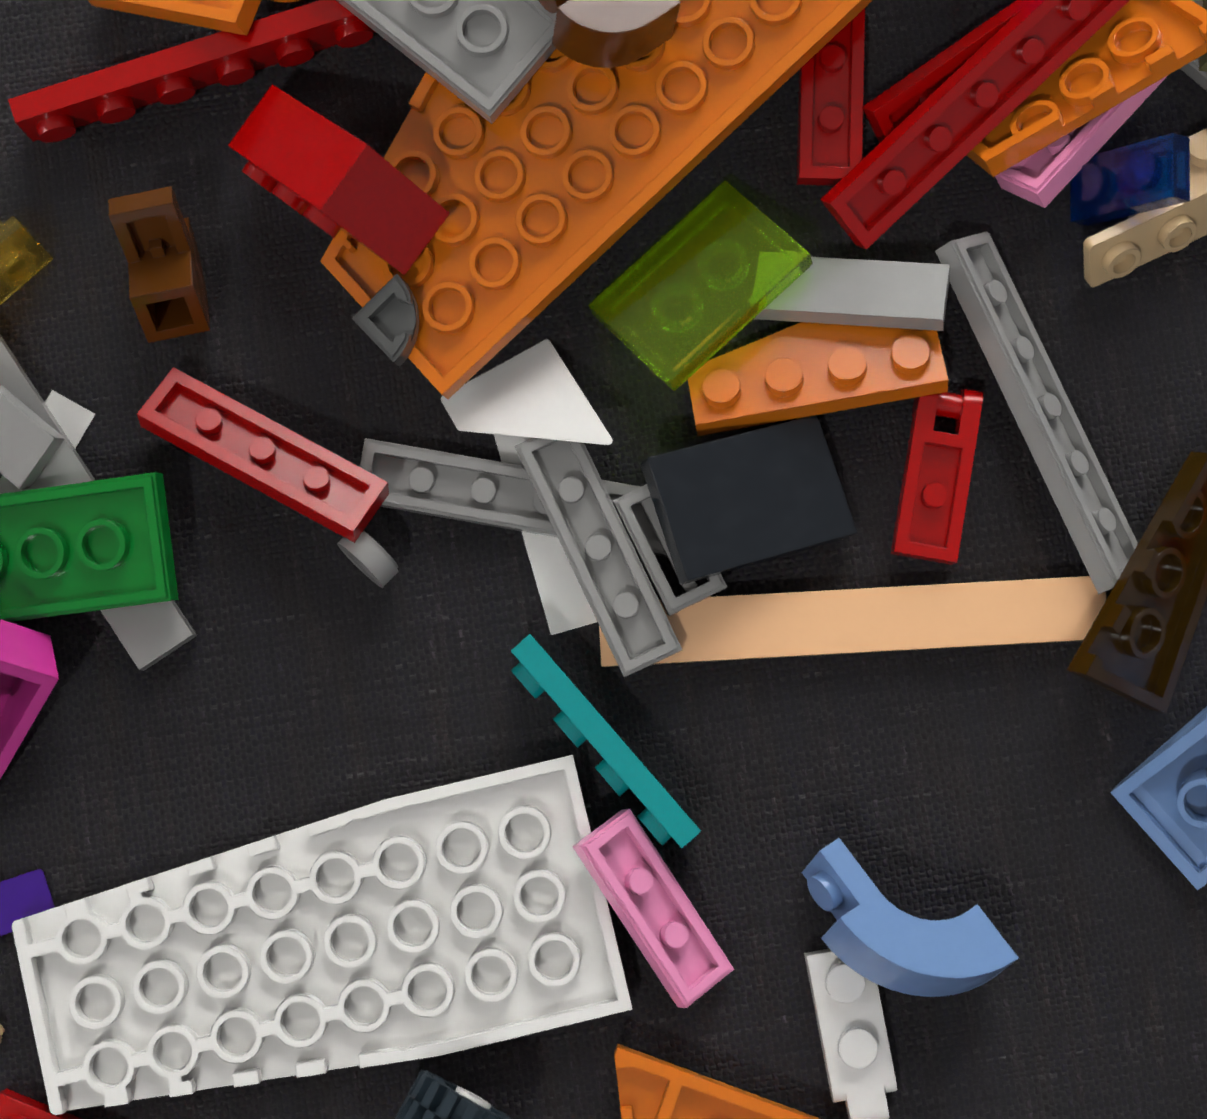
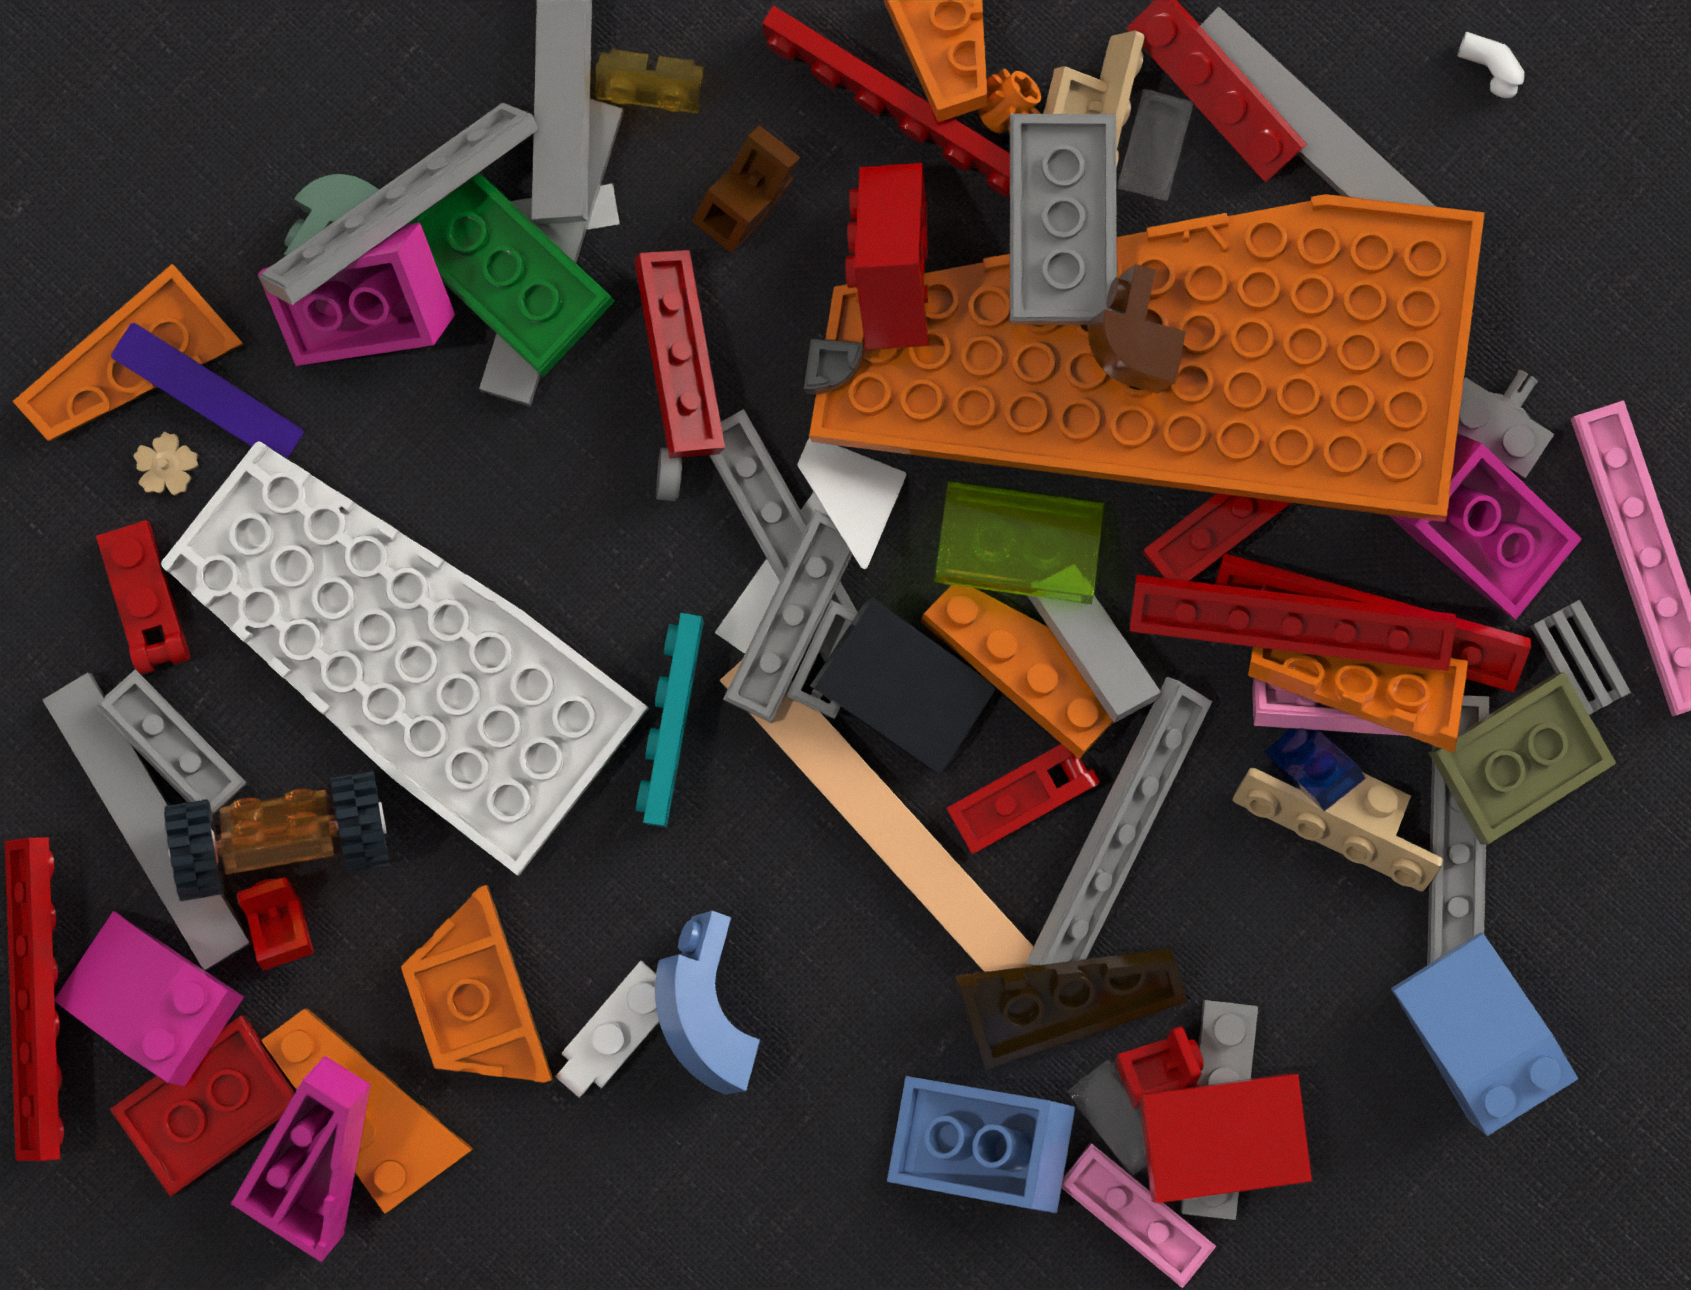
camera: 55 degrees right, 0 degrees up
(653, 908) = (591, 837): bright pink tile -> none

